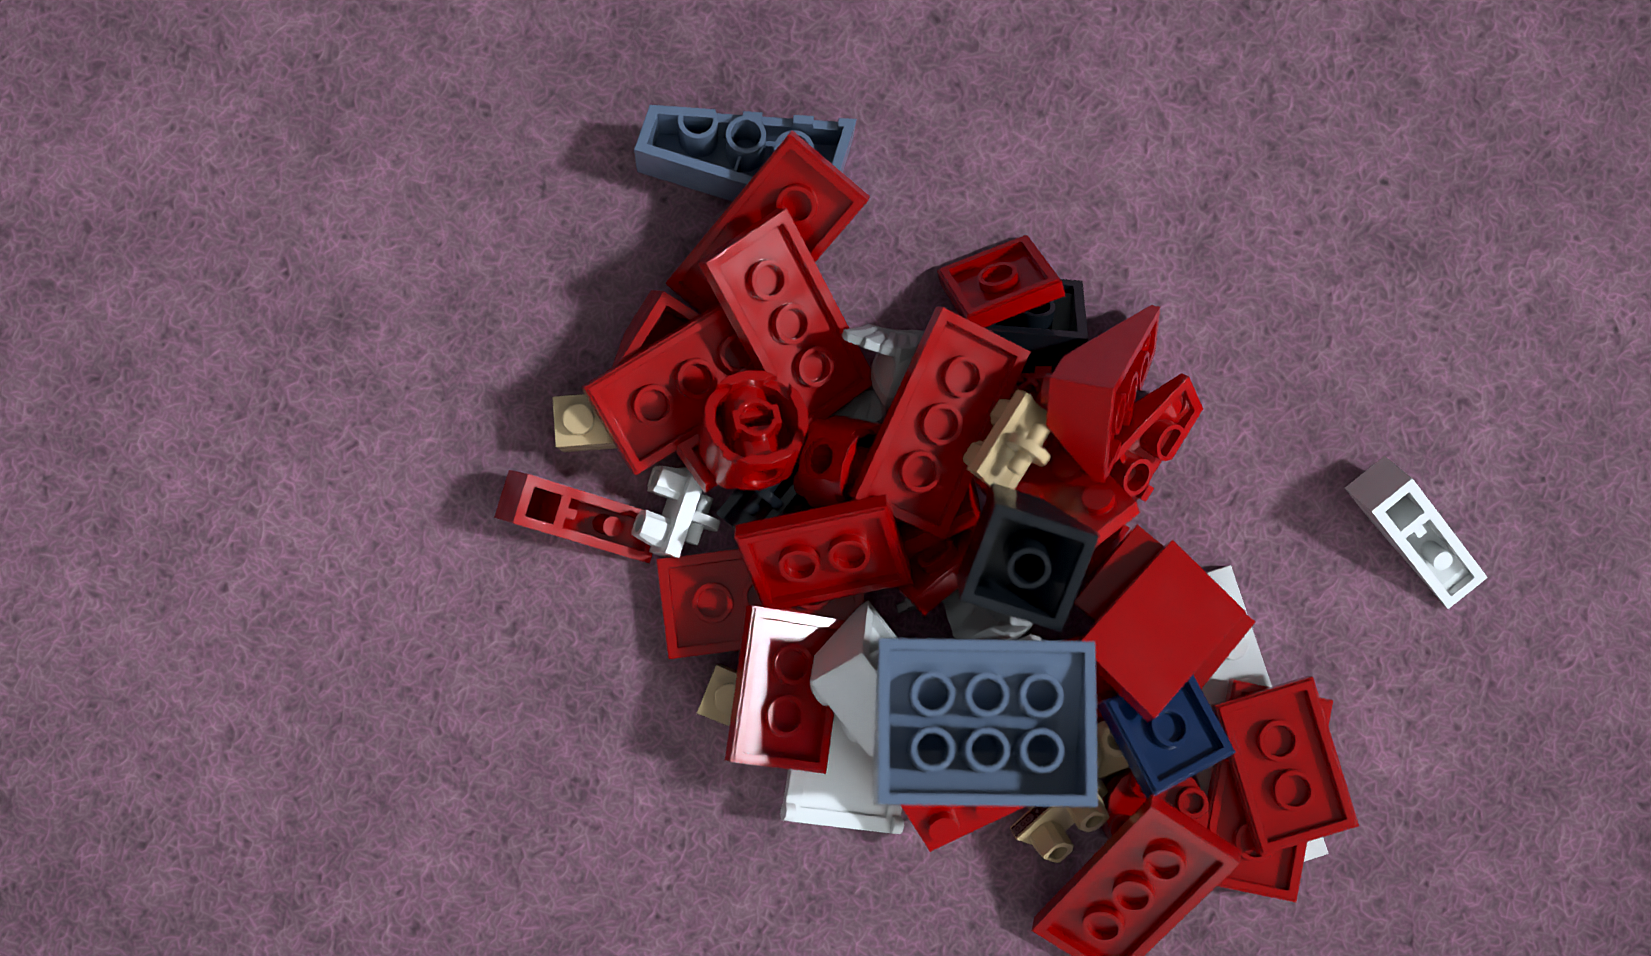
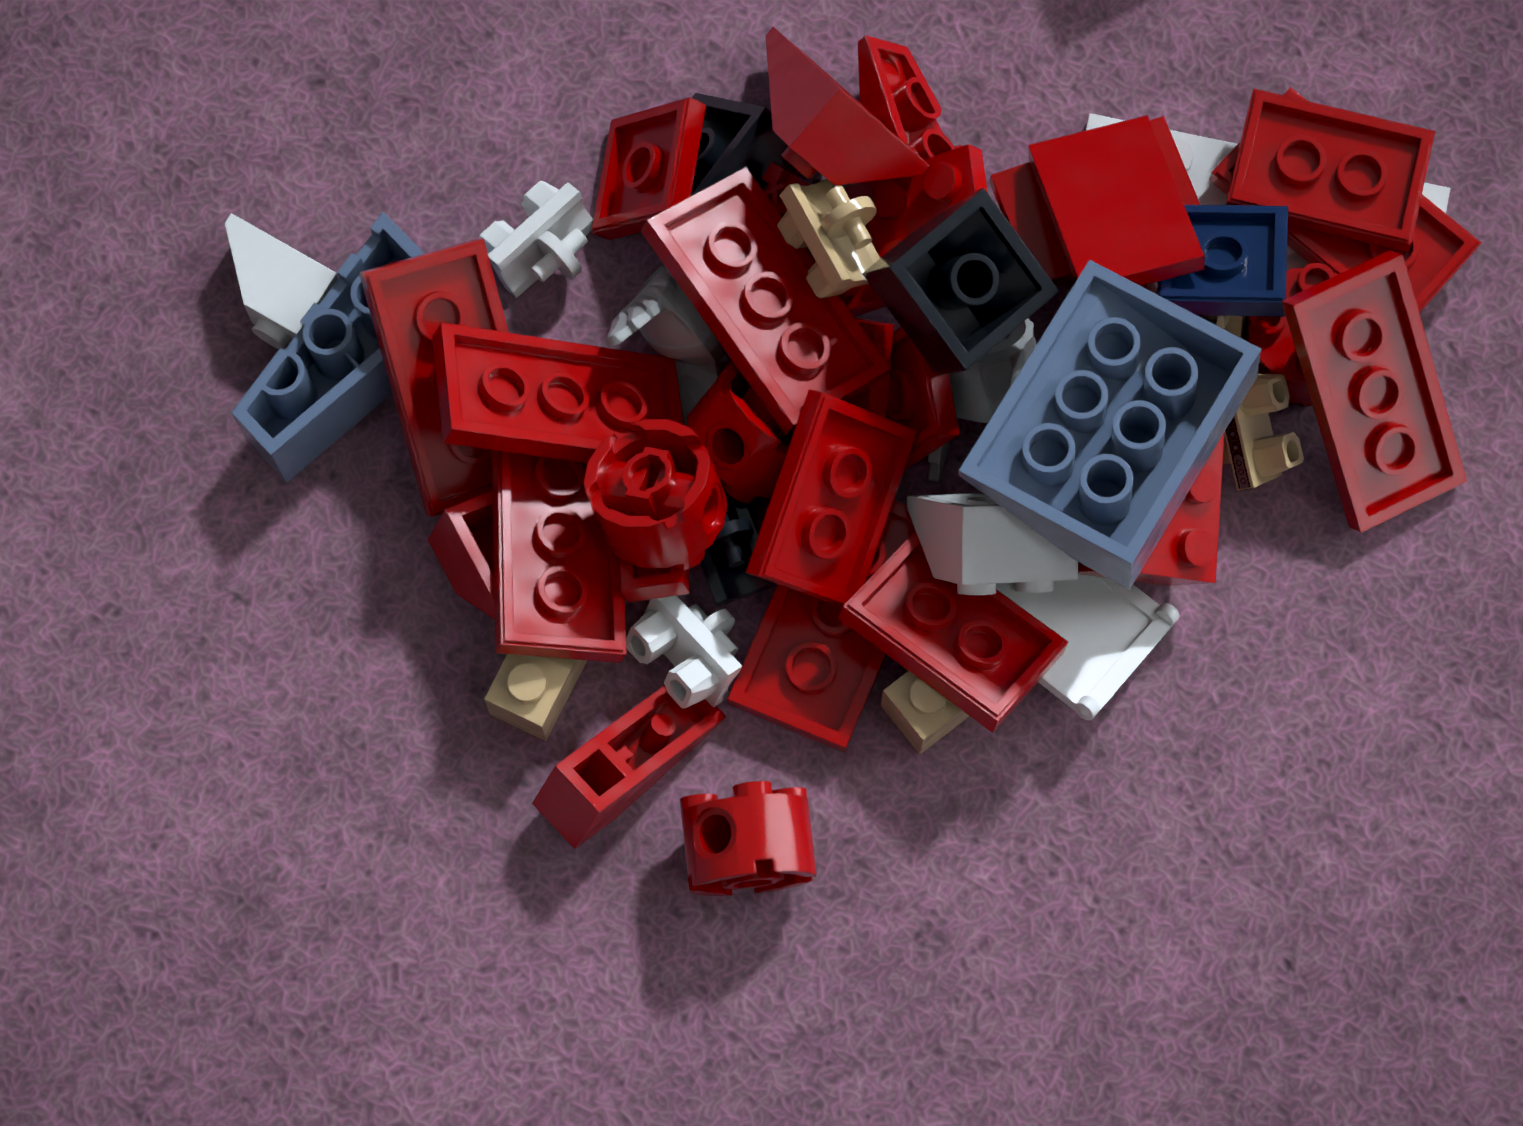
camera: 55 degrees left, 10 degrees down
(560, 632) = (748, 840): none -> red brick
(768, 75) = (275, 281): none -> white slope
(908, 241) = (543, 241): none -> white hips

